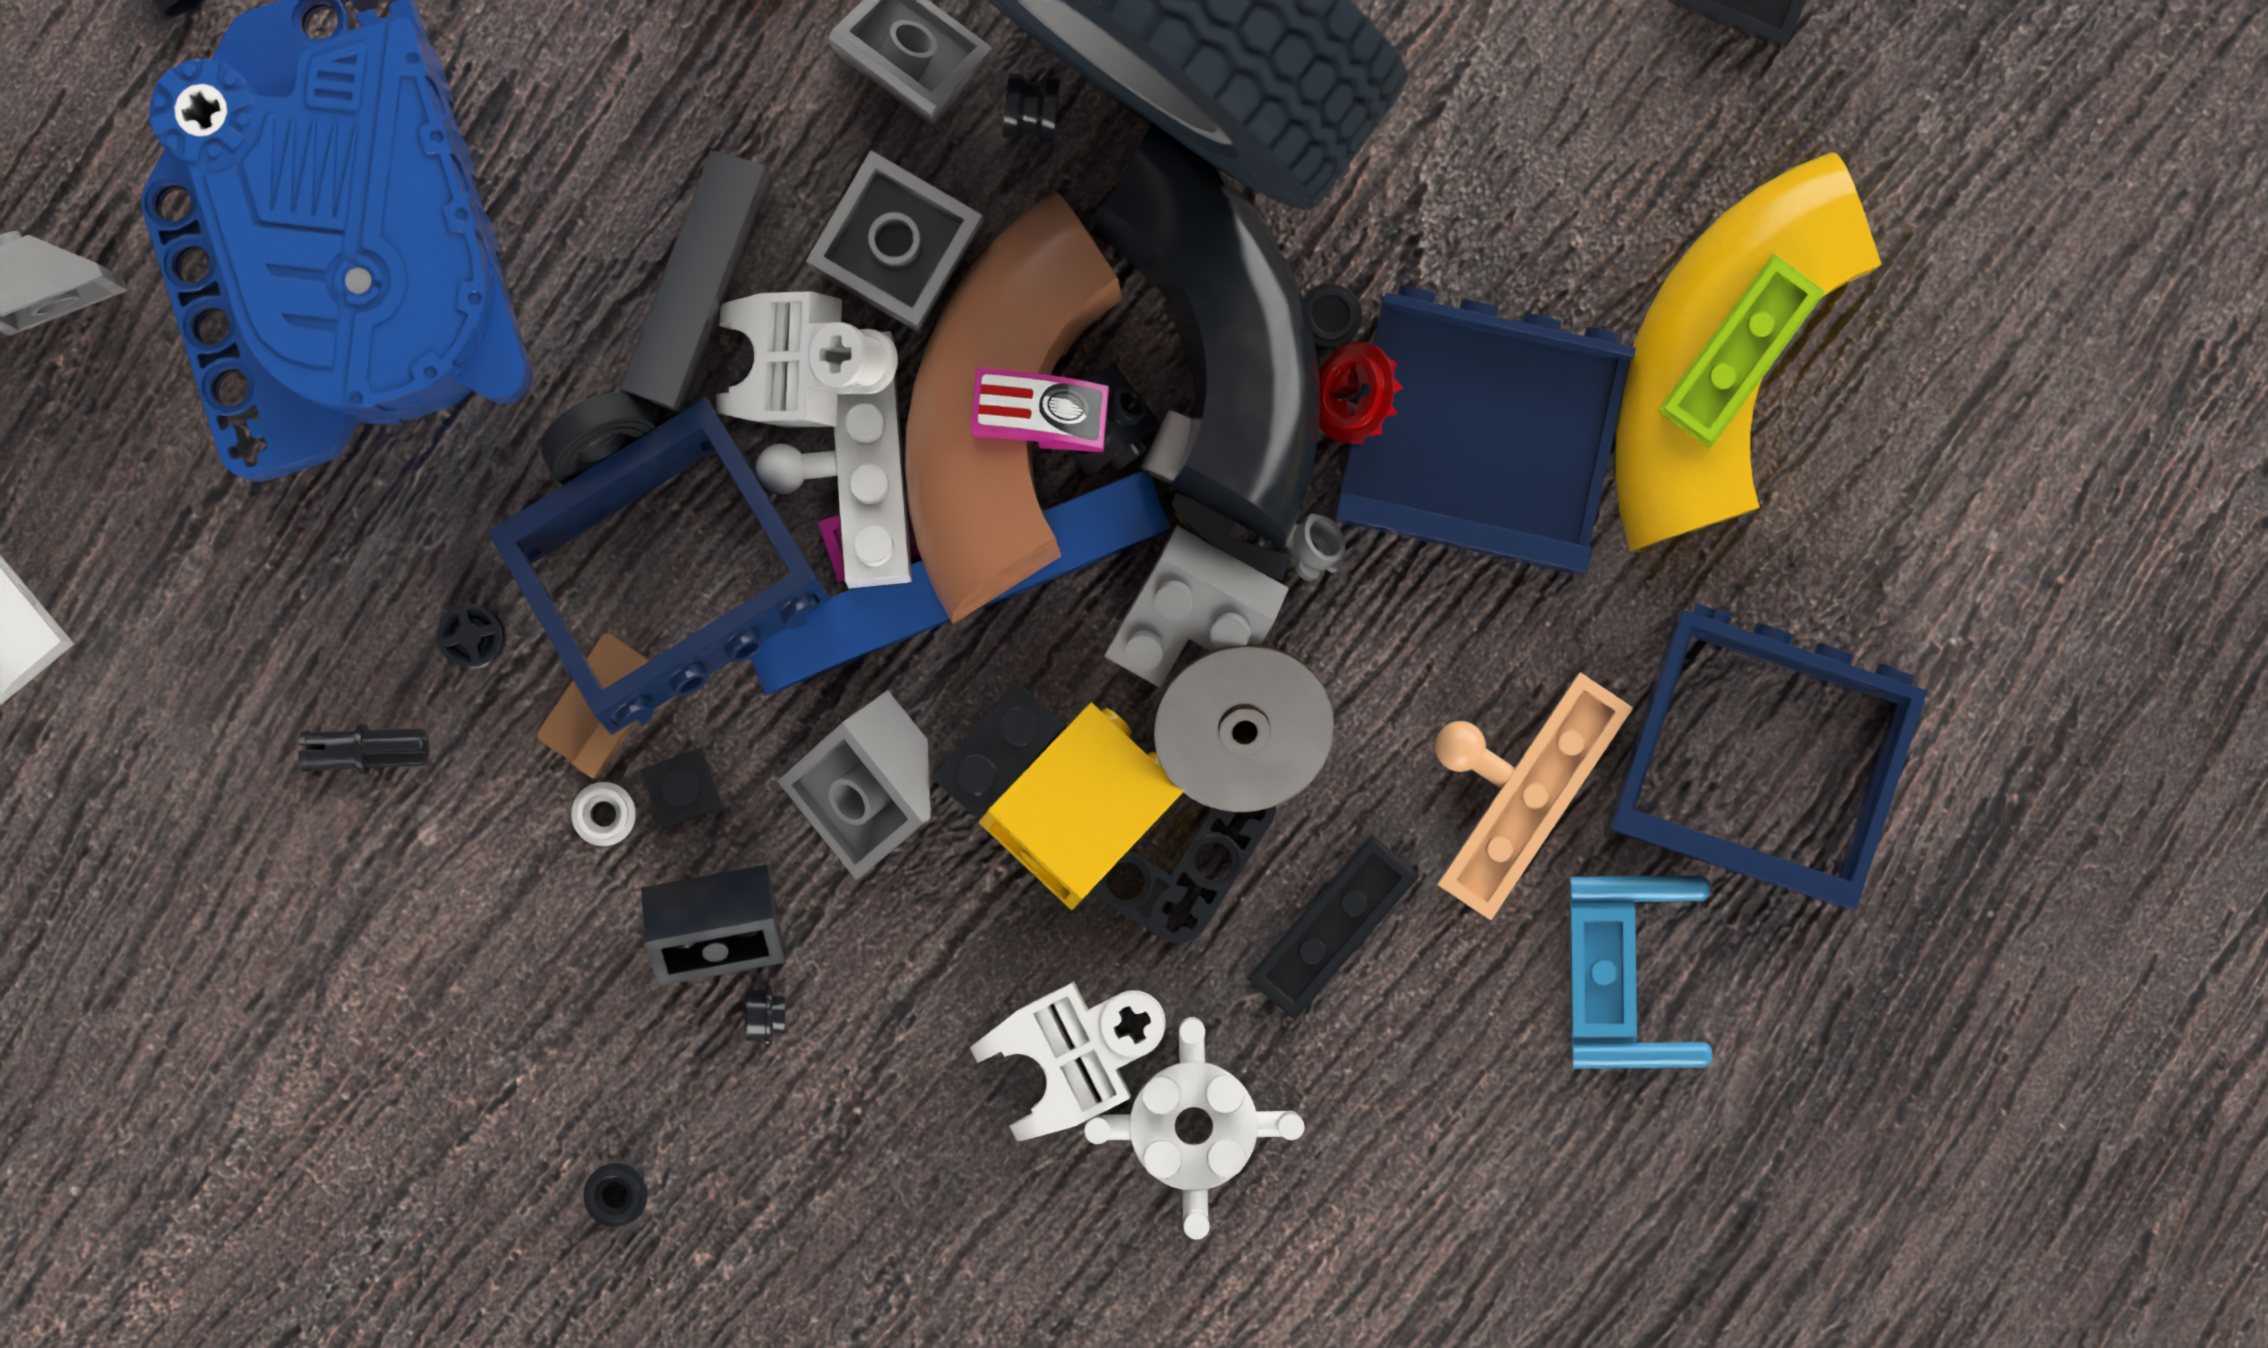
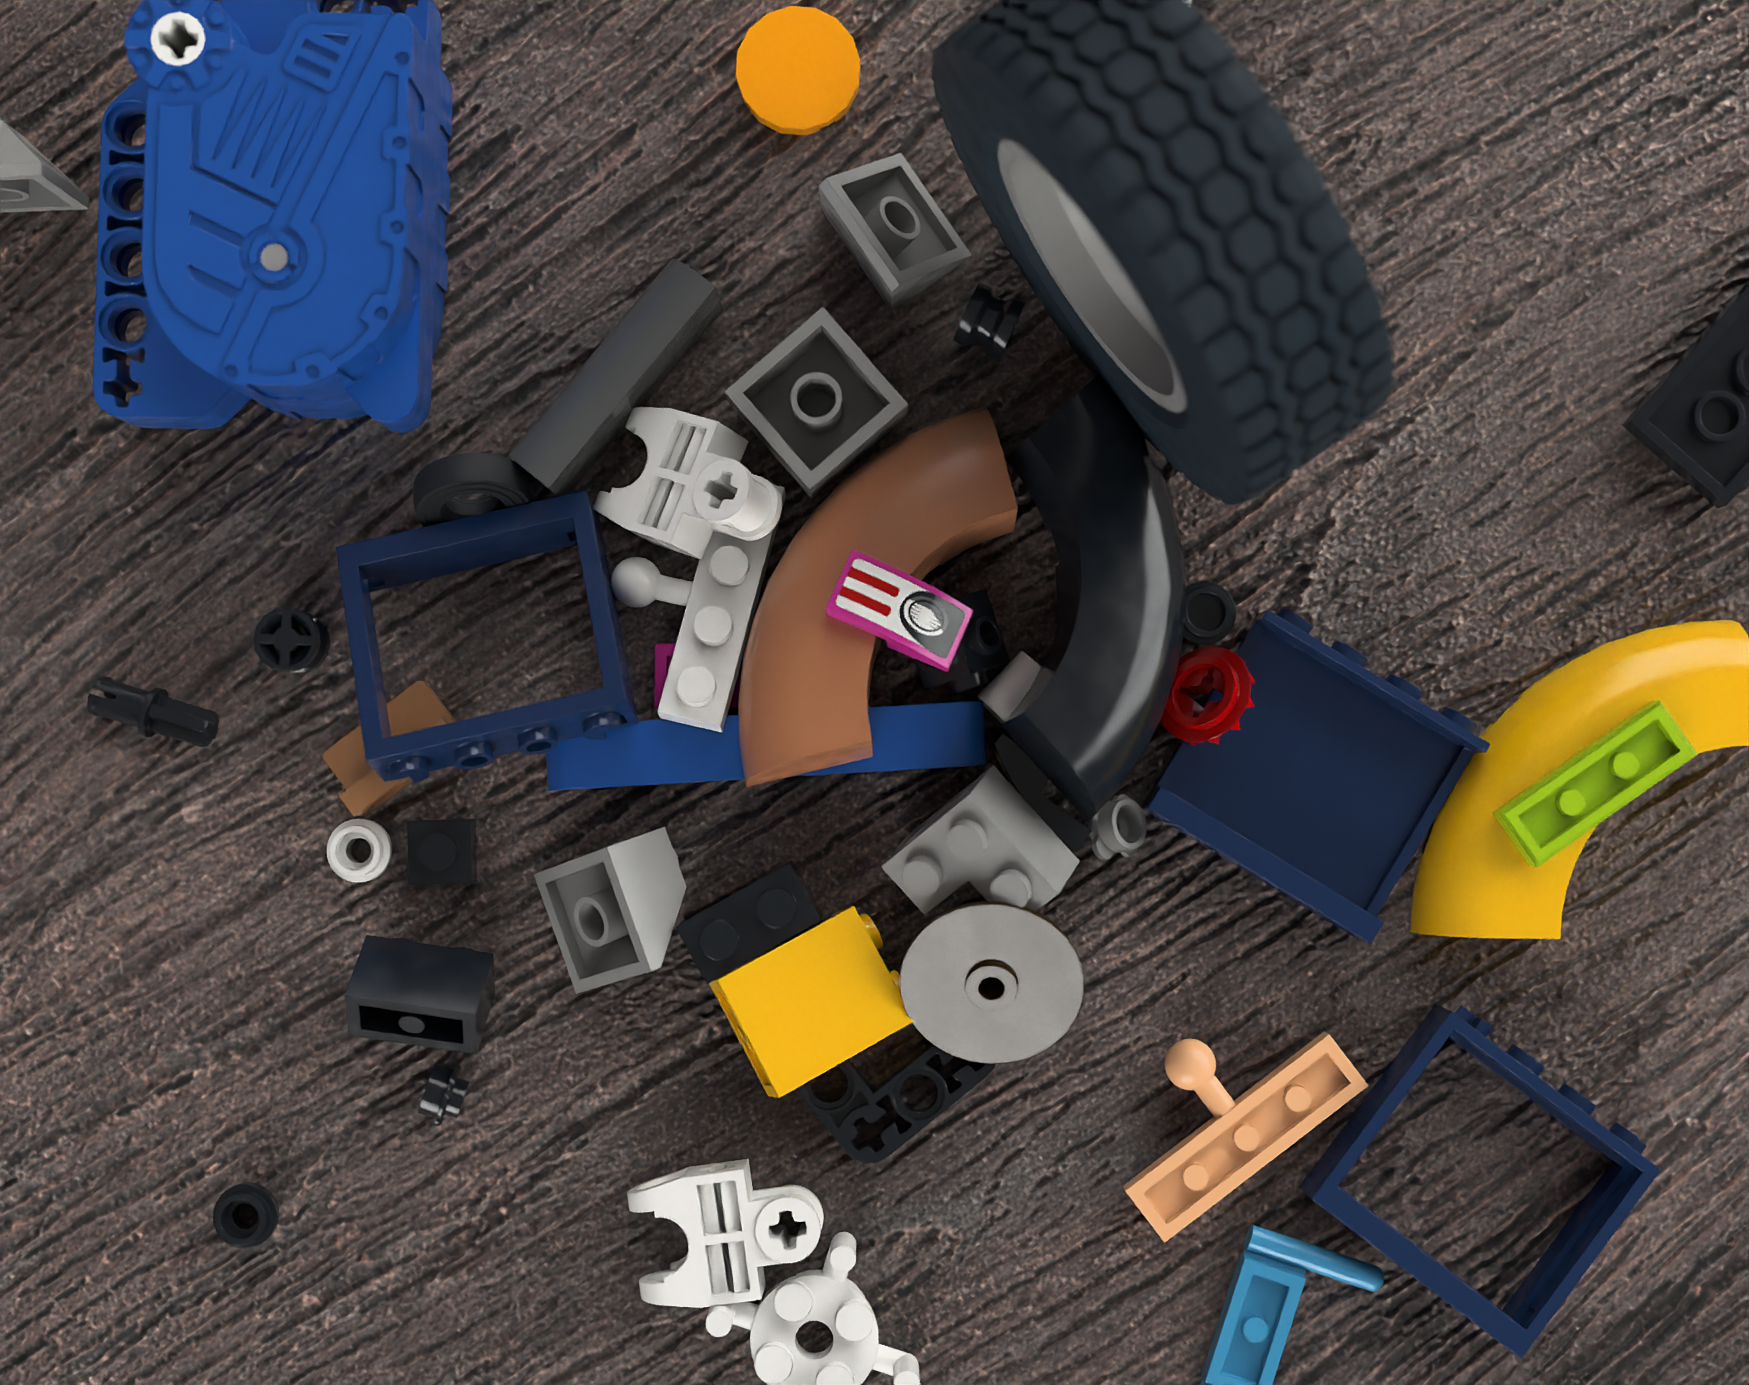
camera: 25 degrees right, 0 degrees up
(1332, 927) = (1010, 1193): black tile -> none

